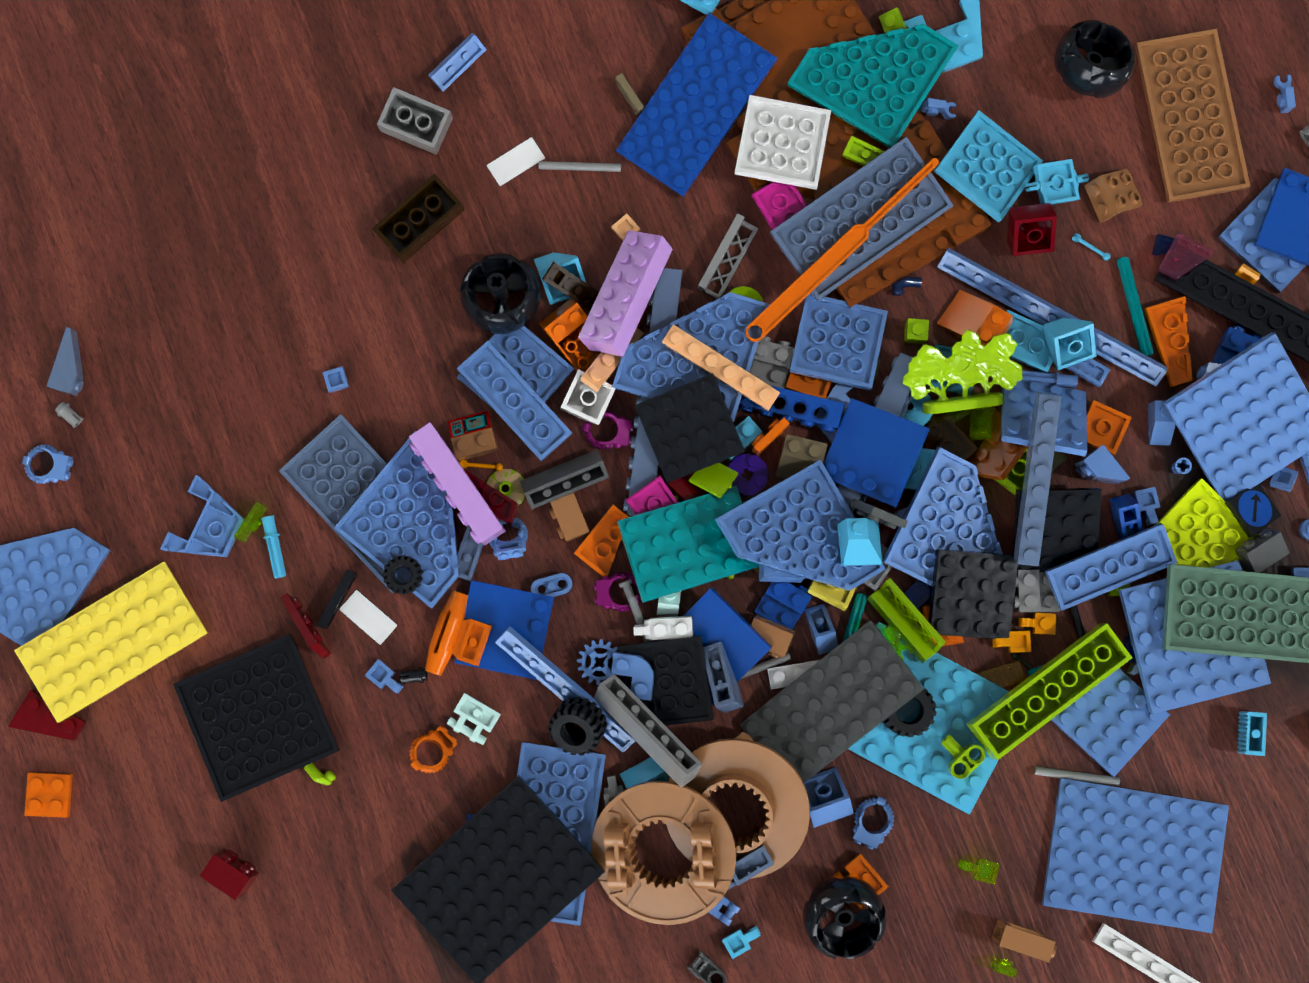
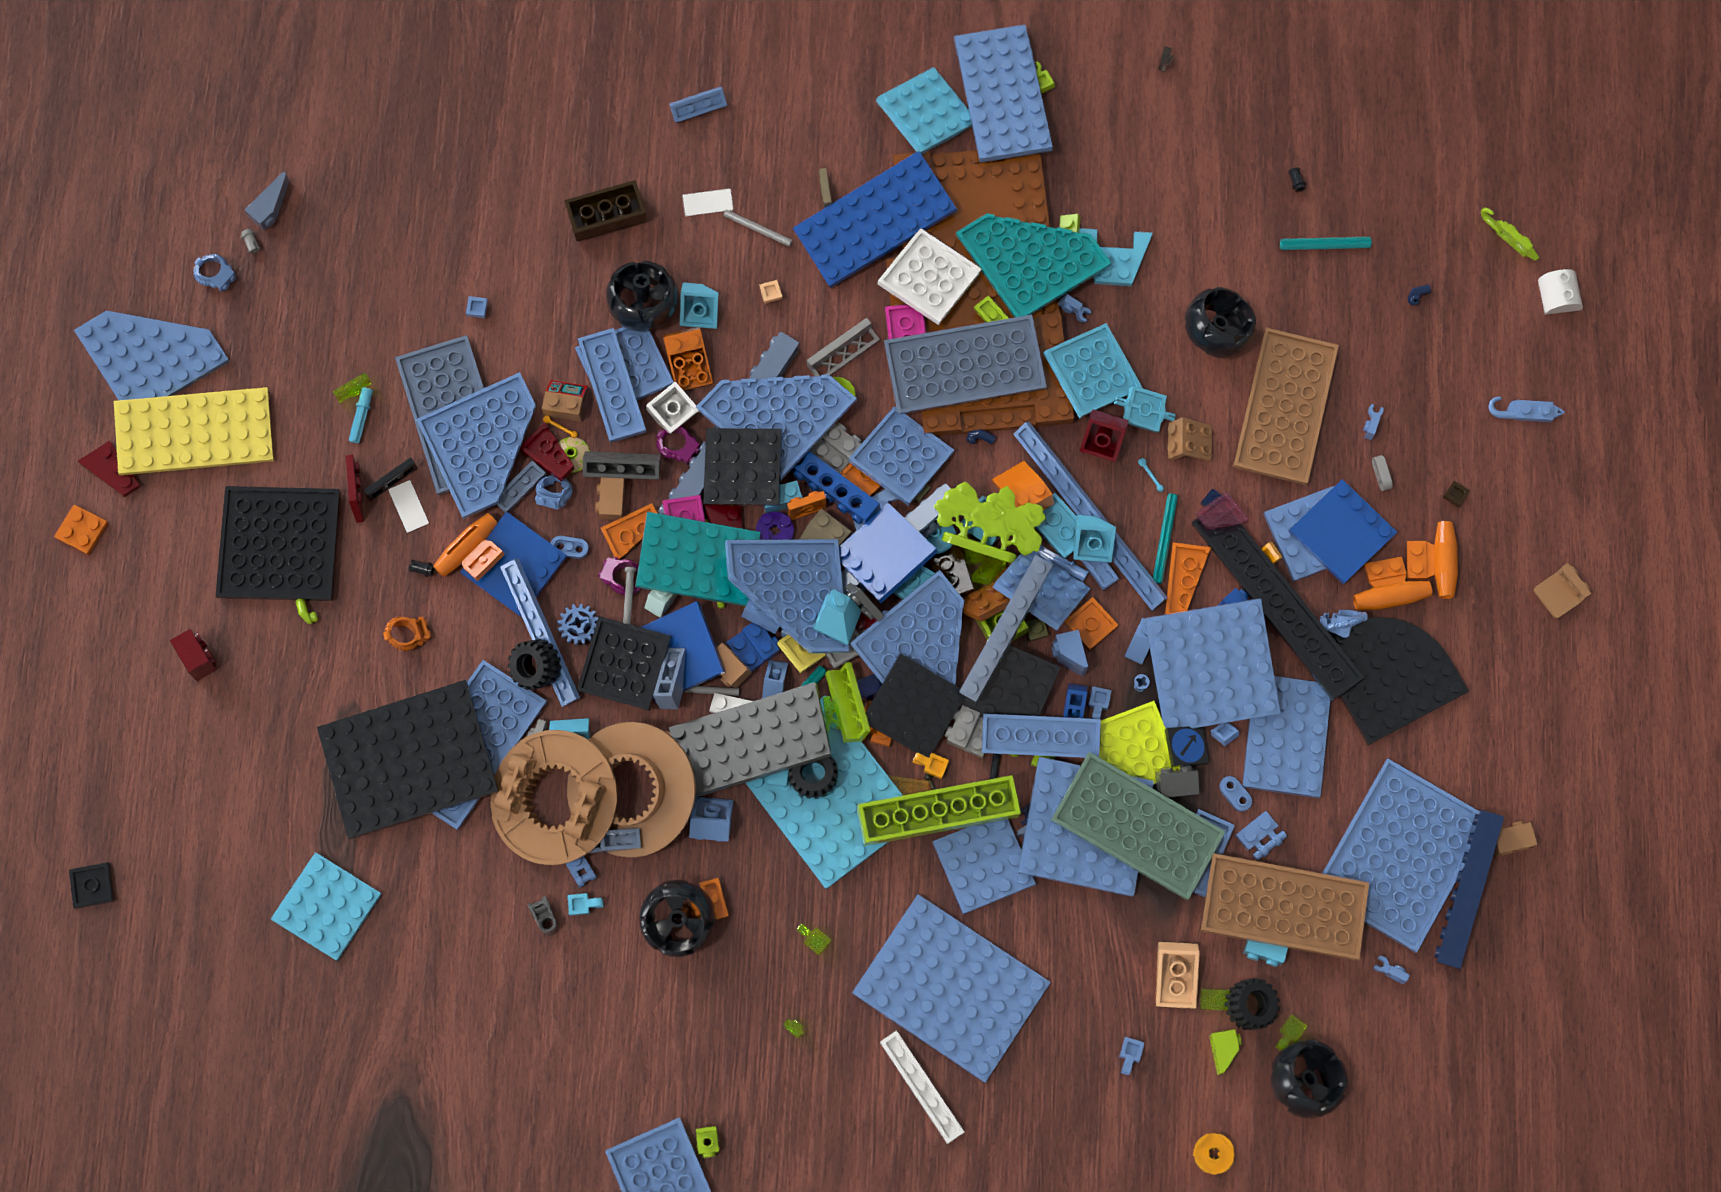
camera: 25 degrees right, 10 degrees down
(214, 528) = (320, 380): medium blue wing -> none
(382, 675) = (396, 555): medium blue plate -> none
(393, 565) = (449, 468): black tyre -> none
(415, 121) = (641, 134): light grey brick -> none
(457, 484) = (530, 425): lavender brick -> none
(477, 713) = (457, 620): light aqua plate -> none
(571, 285) = (707, 323): dark brown slope -> none
(604, 366) = (701, 387): light nougat plate -> none
(625, 293) = (743, 338): lavender brick -> none
(638, 669) = (606, 641): medium blue plate -> none
(647, 730) = (589, 690): light grey brick -> none
(665, 628) = (645, 618): white hinge -> none
(714, 479) = (744, 518): lime piece -> none
(721, 367) = (791, 429): light nougat plate -> none
(829, 261) = (922, 385): orange piece -> none
(871, 838) = (733, 870): medium blue piece -> none
(916, 331) = (970, 474): lime brick -> none
(961, 755) = (840, 832): lime beam -> none
(1024, 940) = (820, 1010): medium nougat window -> none
(1042, 623) = (963, 761): light orange plate -> none
(1080, 776) = (931, 898): light grey bar -> none
(1252, 733) = (1097, 928): medium azure brick -> none

